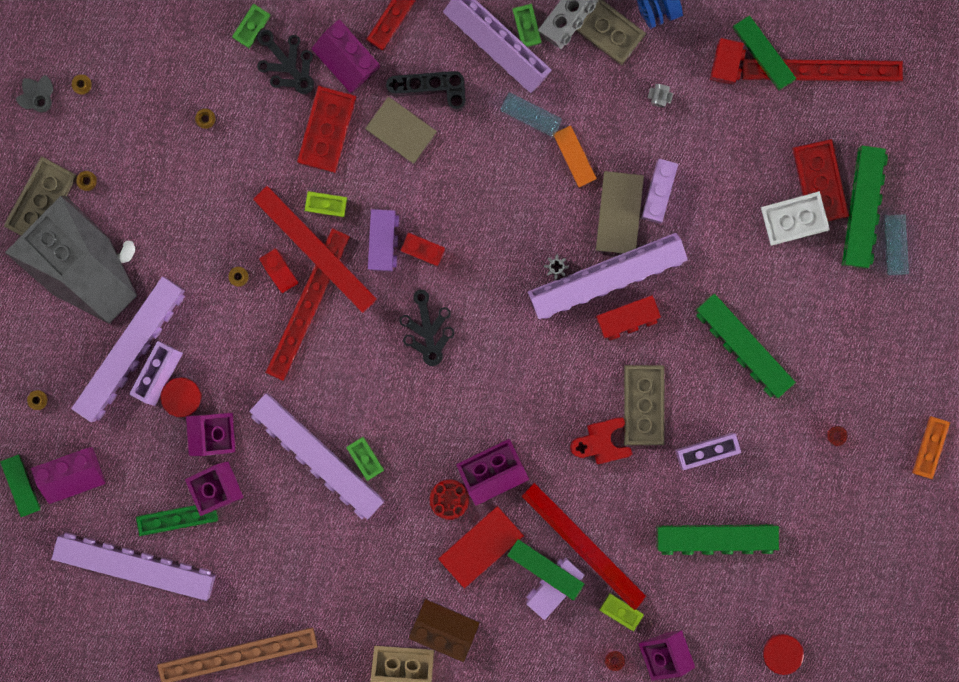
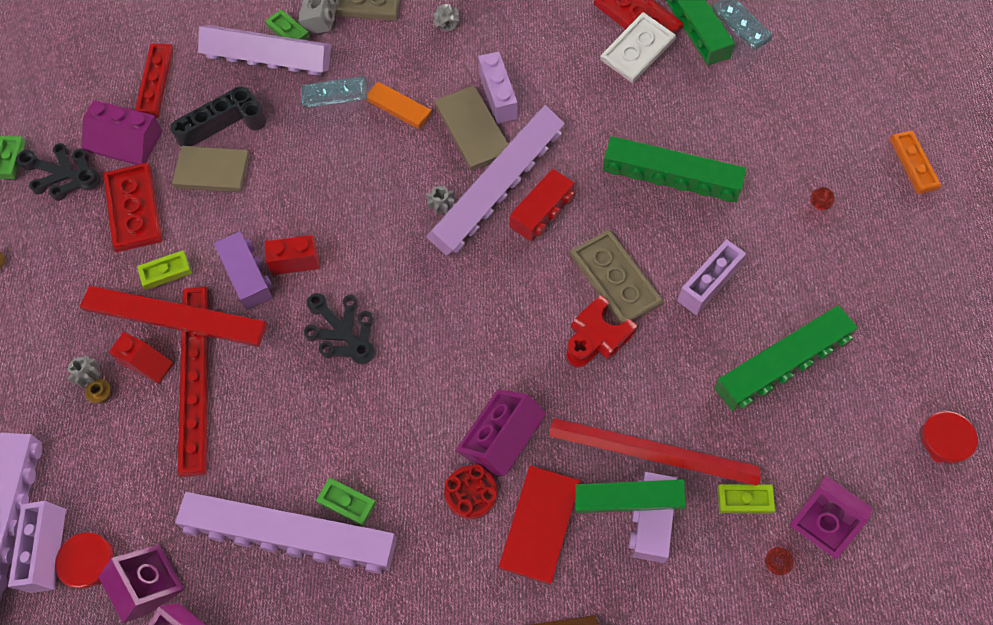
camera: 30 degrees left, 25 degrees down
(240, 259) = (83, 371): none -> light grey gear

